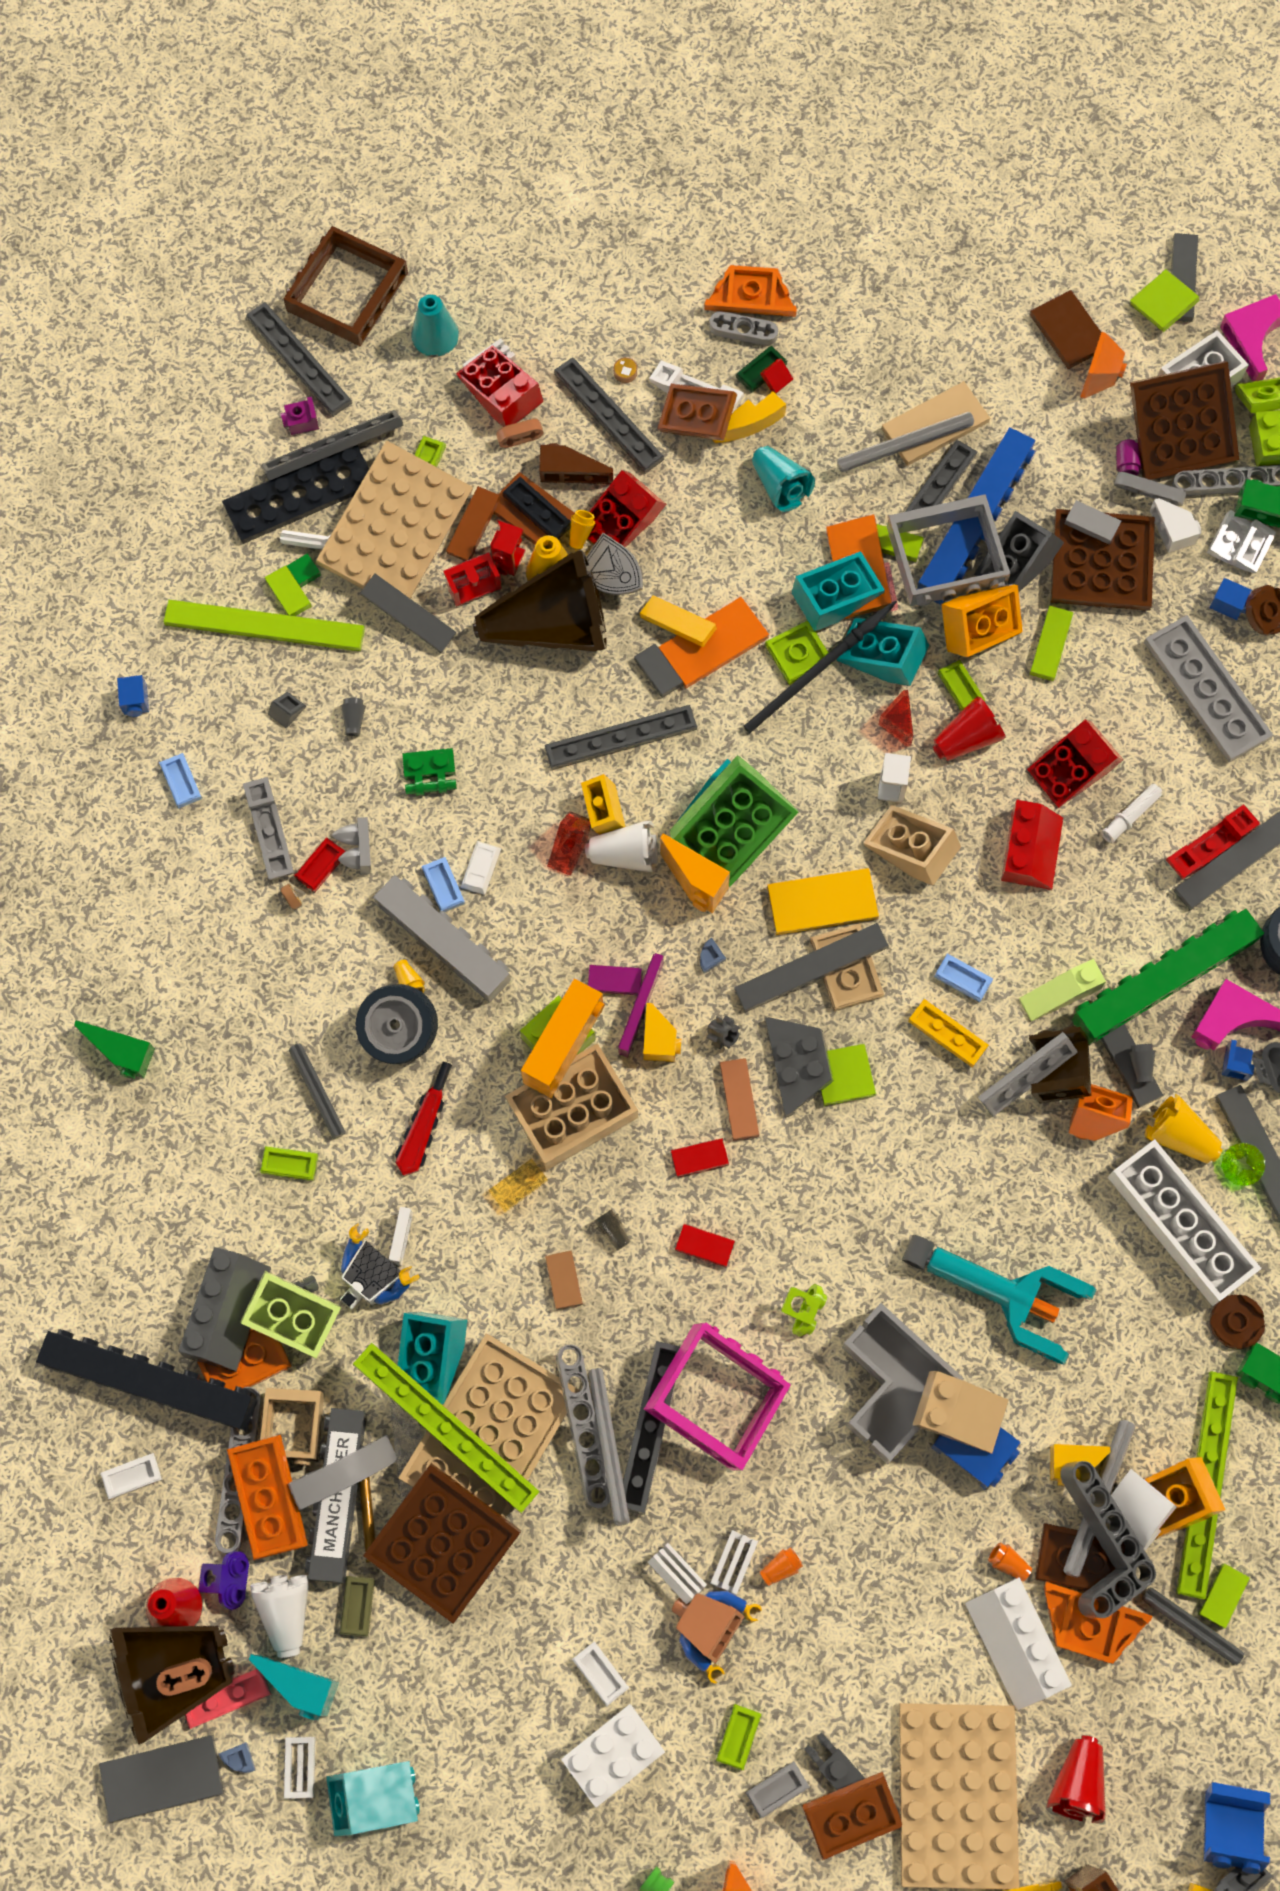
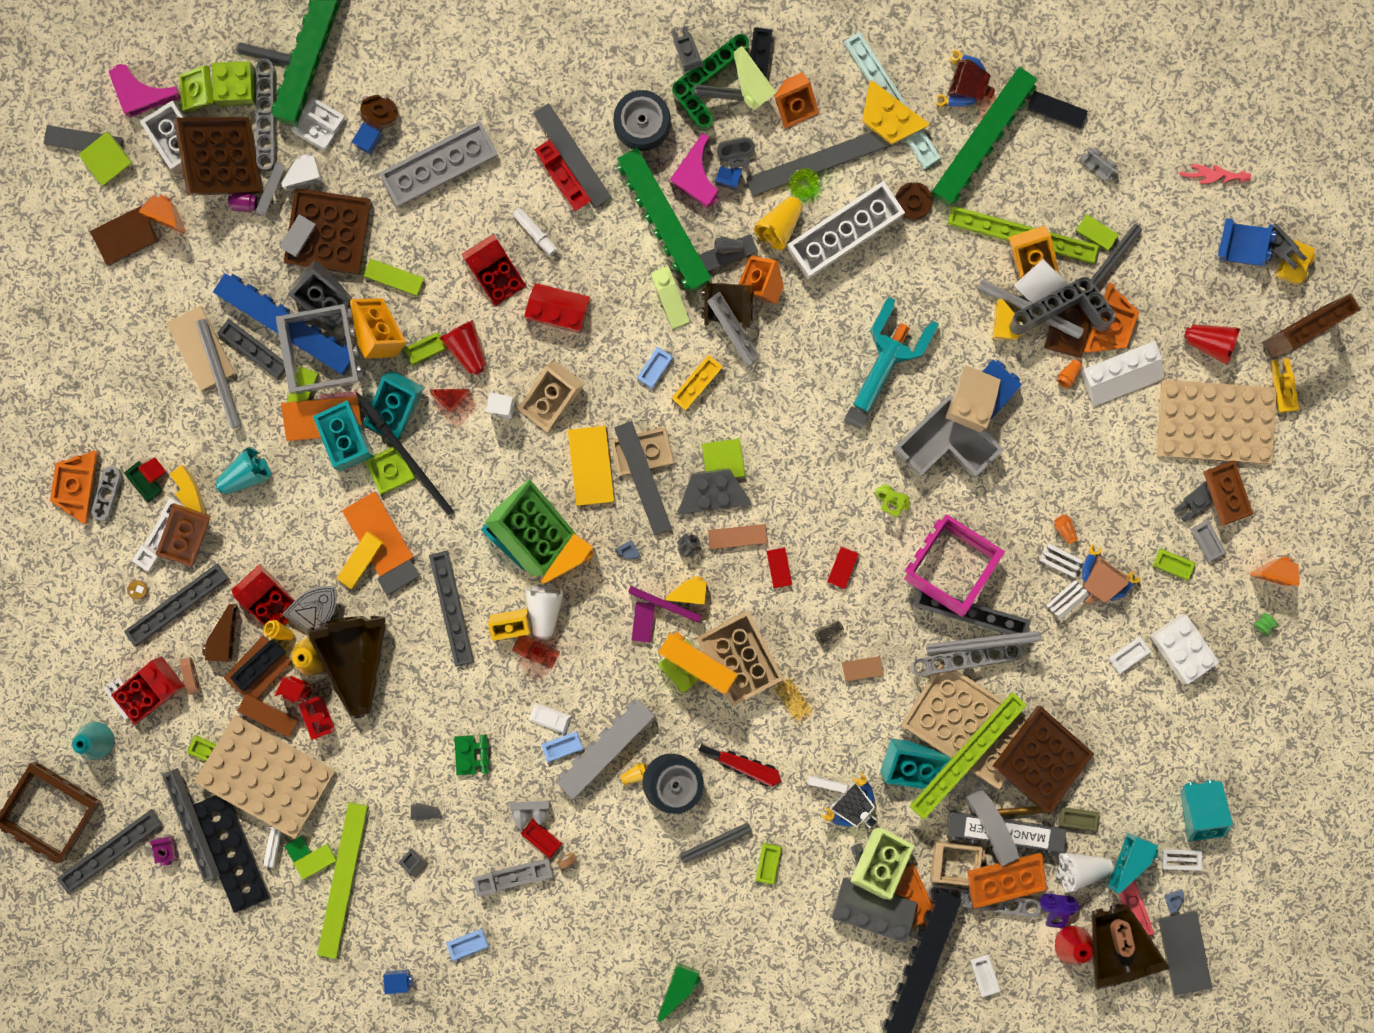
camera: 90 degrees left, 15 degrees up
(408, 613) = (341, 768): dark grey tile -> none

